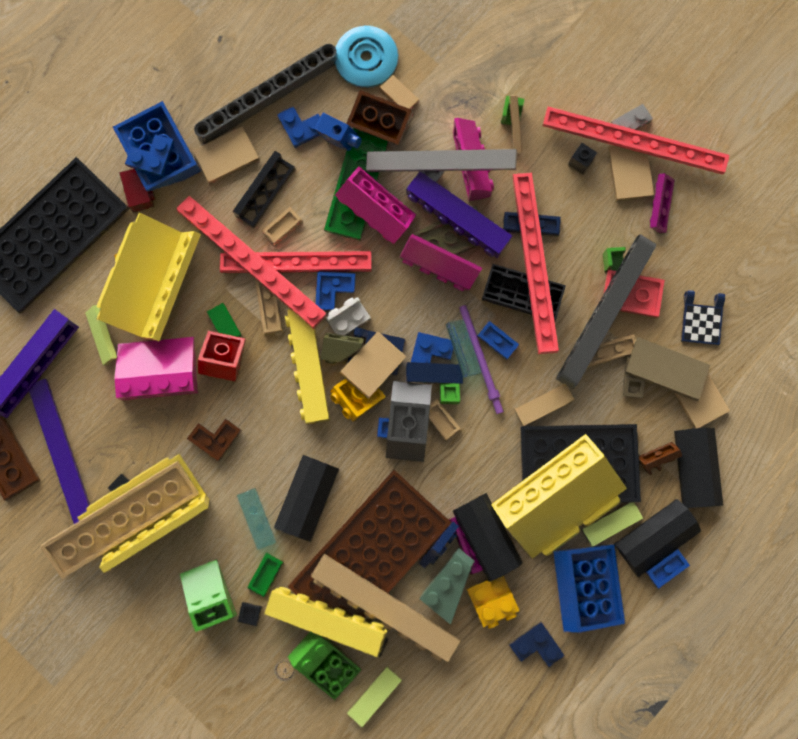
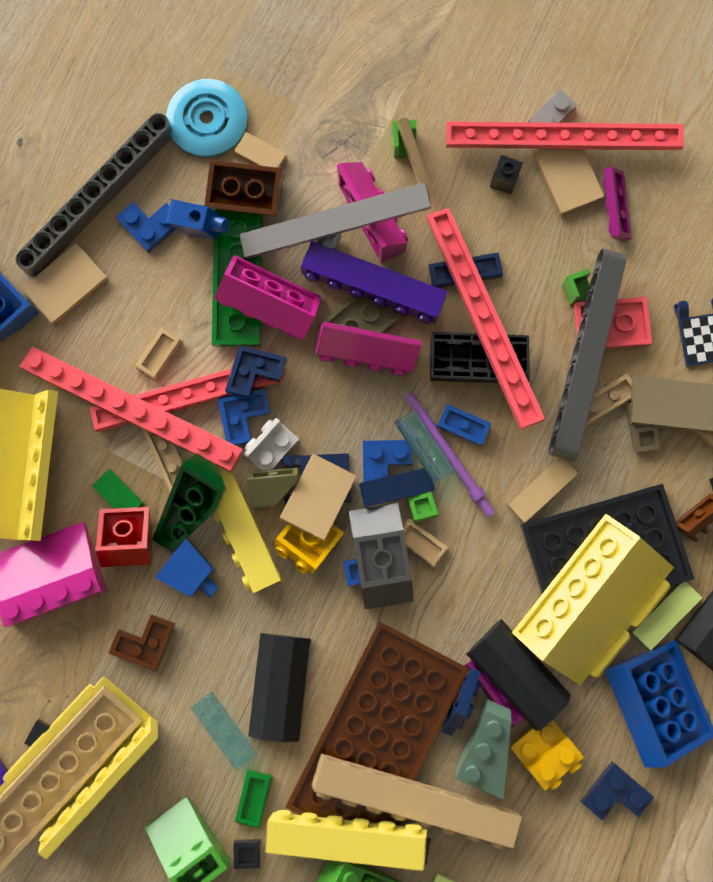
camera: 15 degrees left, 0 degrees up
(260, 182) = (115, 310): black fence -> none
(262, 394) = (188, 571): none -> blue torso
(277, 342) = (191, 501): none -> dark green wedge
(347, 253) = (250, 365): none -> dark blue plate

